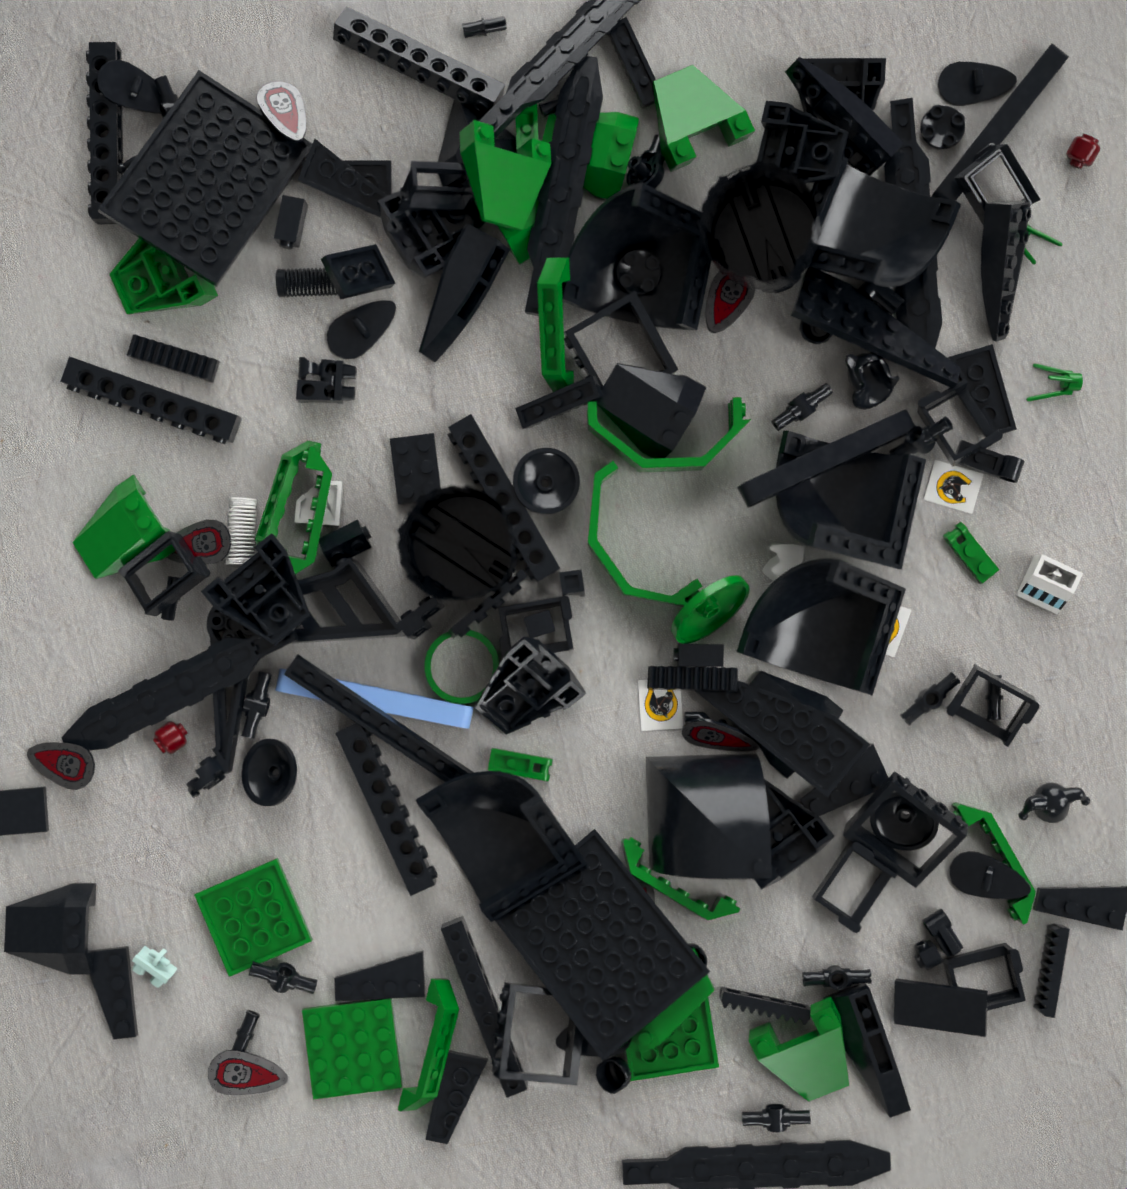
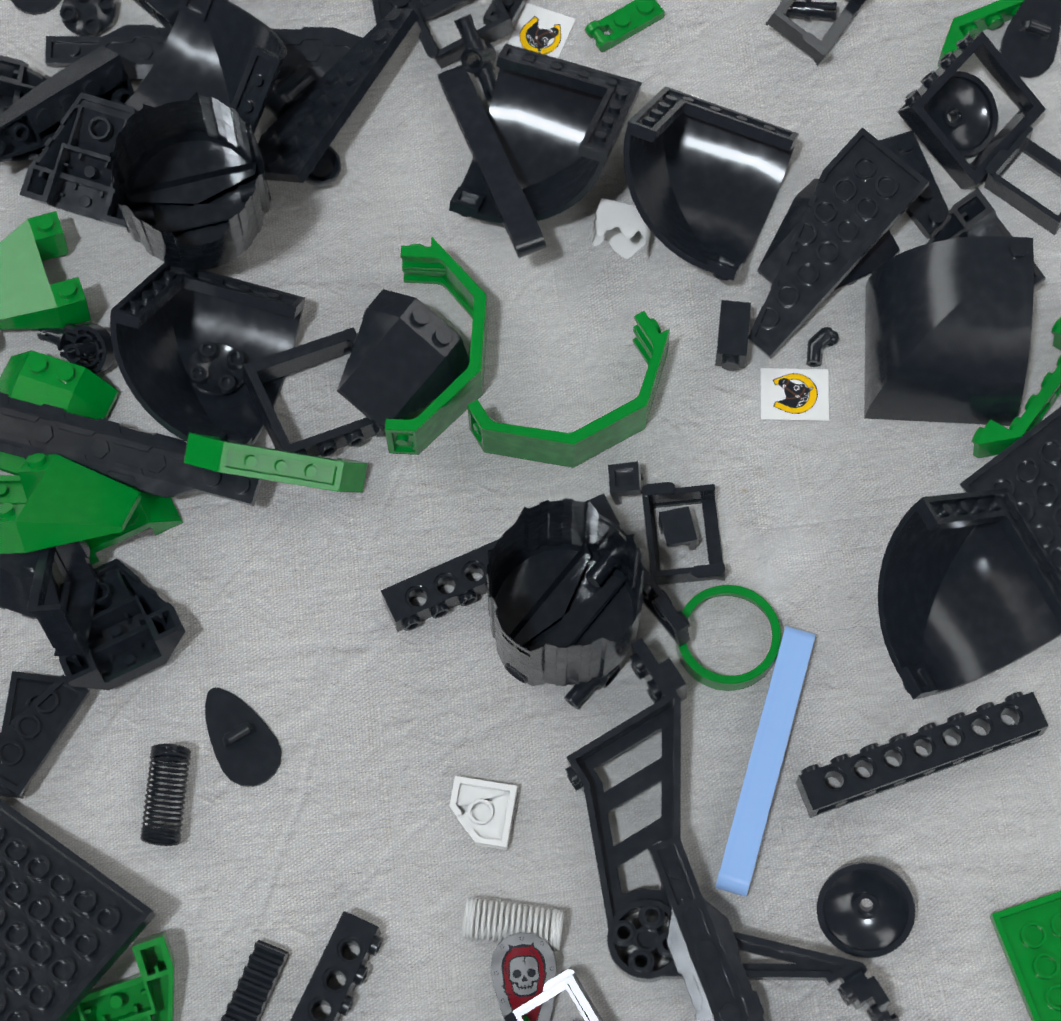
camera: 80 degrees left, 20 degrees down
(256, 705) = (768, 924): black pin -> none
(262, 593) = (607, 878): black wedge -> none
(281, 490) = (475, 864): green slope -> none
(290, 222) = (75, 815): black brick -> none
(314, 461) = (486, 802): green slope -> none
(331, 384) = (315, 779): black hips -> none
(345, 542) = (543, 777): black brick -> none
(358, 271) = (162, 723): black plate -> none
(374, 720) = (798, 752): black plate -> none
(414, 466) = (447, 678): black plate -> none
(461, 288) = (206, 586): black wedge -> none
(519, 764) = (864, 581): green plate -> none
(528, 686) = (765, 549): black wedge -> none
(551, 466) = (478, 488): black dish -> none
(559, 402) = (379, 474): black gear -> none
(692, 678) = (764, 345): black gear -> none
(710, 609) = (673, 308): green dish -> none
(717, 735) = (841, 321): shield -> none
(725, 302) = (270, 265): shield -> none
(802, 407) = (419, 192): black pin -> none
(869, 379) = (393, 110): black hair -> none
(939, 692) = (812, 87): black pin -> none

